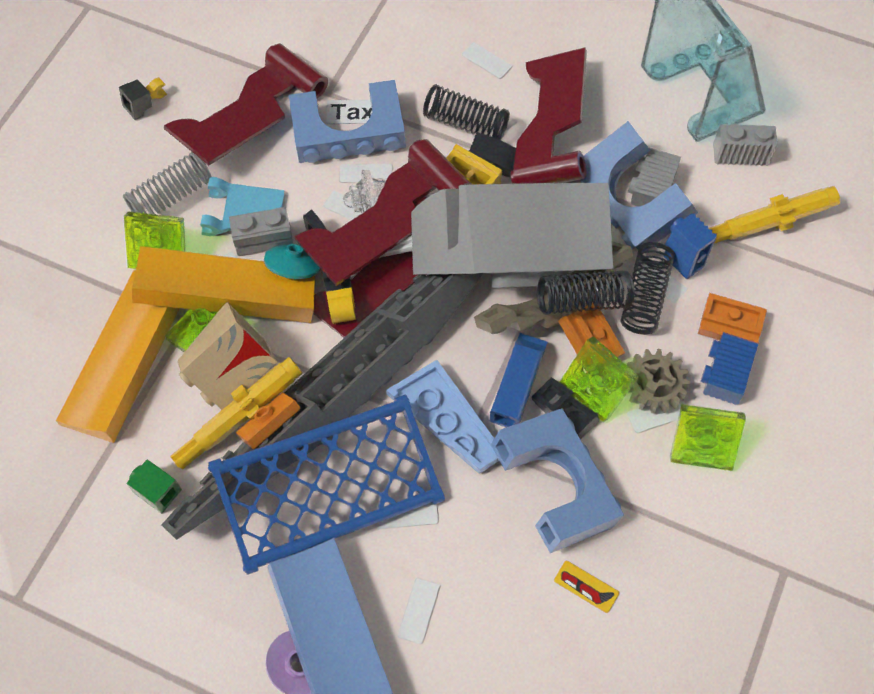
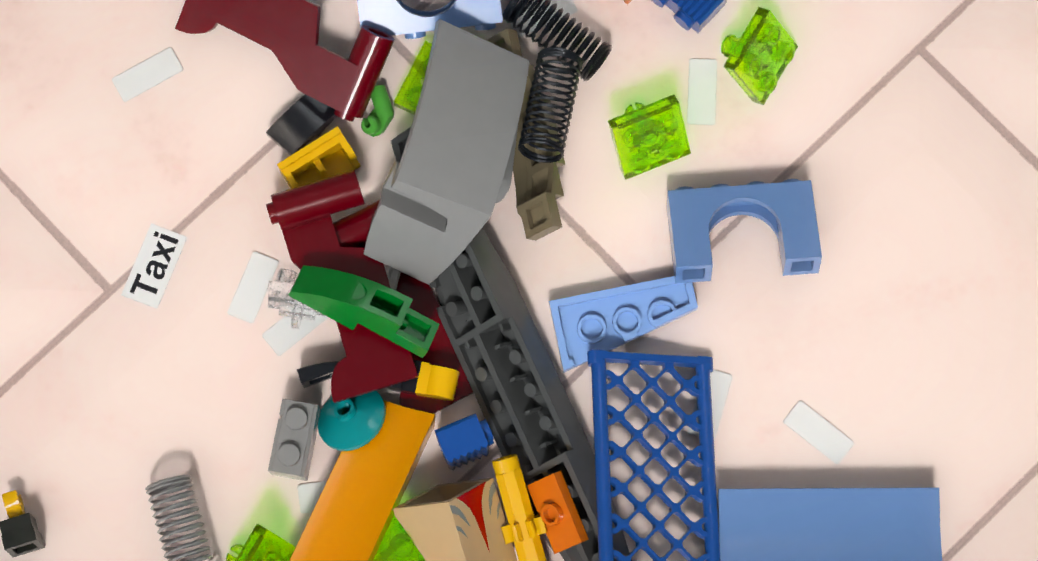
camera: 70 degrees left, 15 degrees up
(239, 201) = (242, 449): medium azure flag -> none
(253, 110) = (112, 390): dark red door -> none
(299, 335) = (464, 440): none -> blue brick
(319, 142) = (186, 330): medium blue arch -> none
(372, 226) = (364, 302): none -> green slope
(503, 114) = (263, 97): black piece -> none
(517, 381) = (609, 222): blue piece -> none
(556, 396) = (650, 188): black slope -> none
(584, 325) = (590, 119): orange plate -> none
(586, 586) = (859, 251): yellow sticker -> none
(668, 388) = (660, 64): dark tan gear -> none

